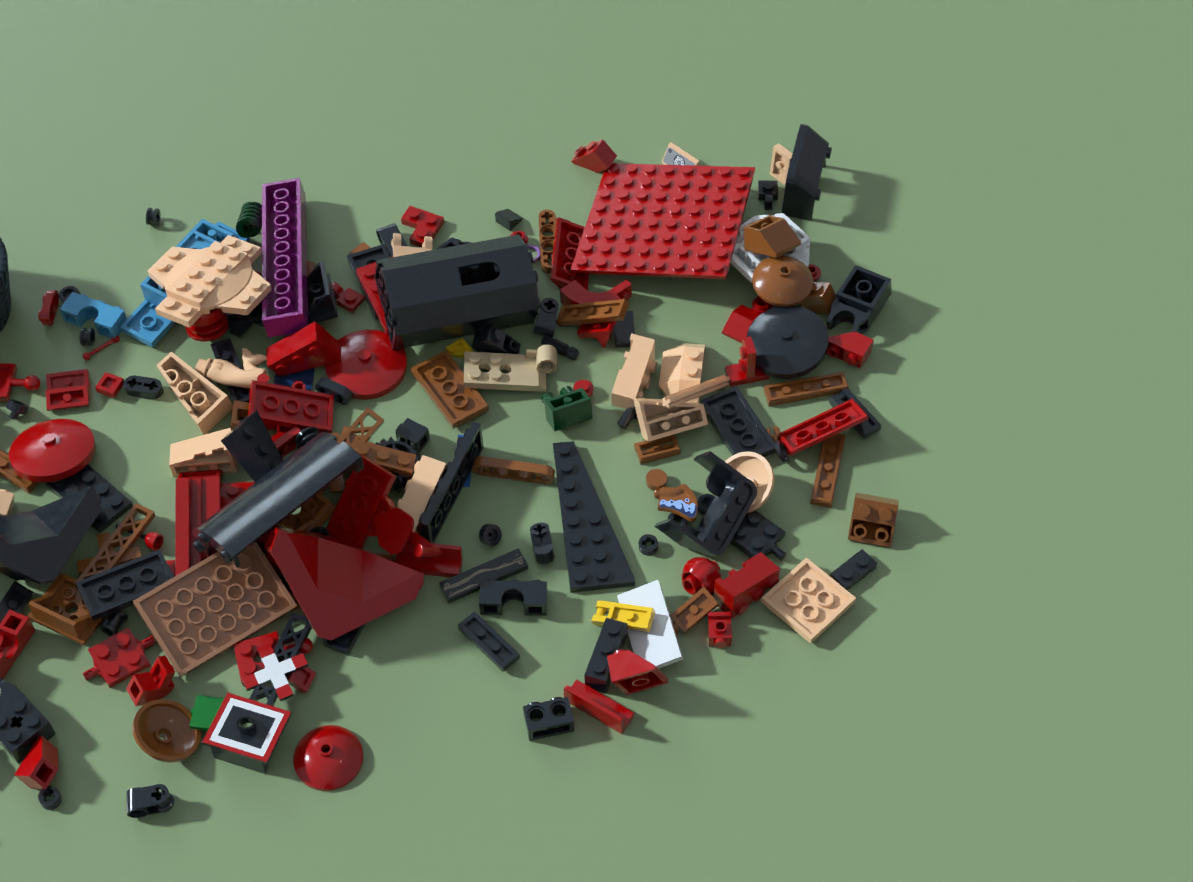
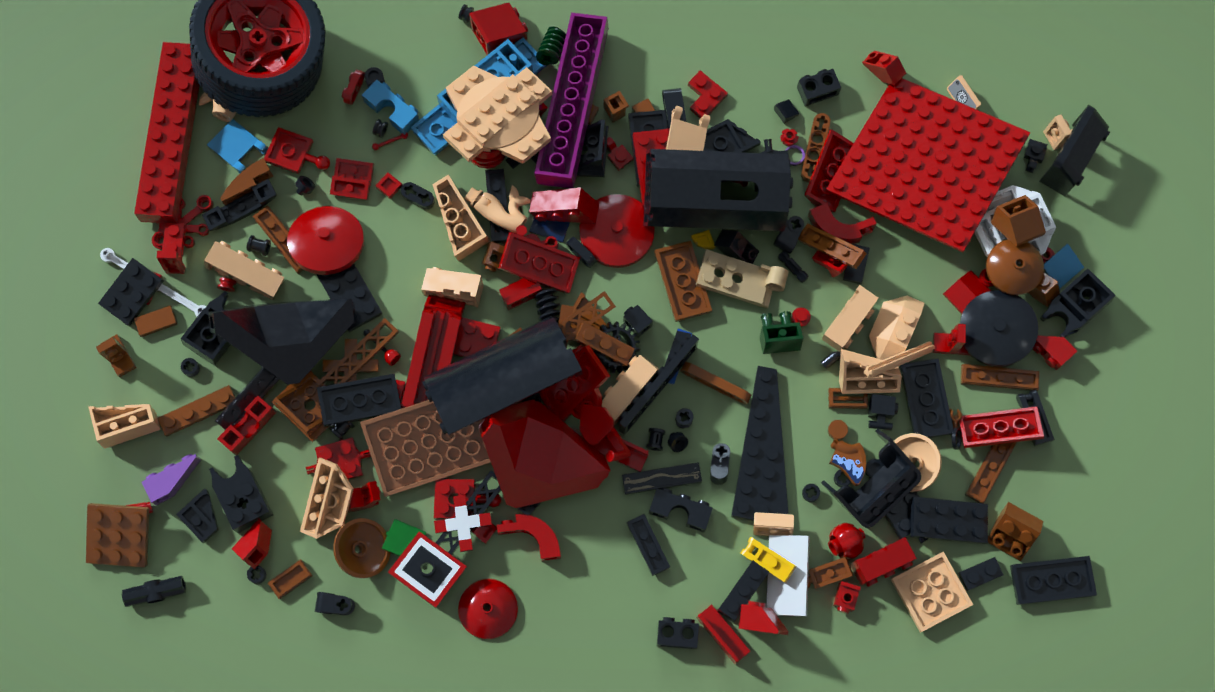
camera: 15 degrees right, 20 degrees up
(90, 792) = (290, 579): none -> dark orange tile
(114, 690) = (327, 500): none -> light nougat wedge
(184, 213) = (496, 25): none -> red slope
(253, 446) = (497, 301): black wedge -> none
(331, 253) = (615, 106): none -> dark orange brick
(357, 659) = (536, 528): none -> red arch
(465, 538) = (655, 439): none -> black bush
(486, 509) = (681, 413): none -> black bush
(534, 189) = (821, 91): none -> black brick
(617, 582) = (773, 524): none -> light nougat slope
(694, 444) = (882, 408): none -> black brick
(801, 527) = (949, 520): none -> black plate
(831, 272) = (1063, 265): none -> dark azure window
(930, 553) = (1053, 580): none -> black plate

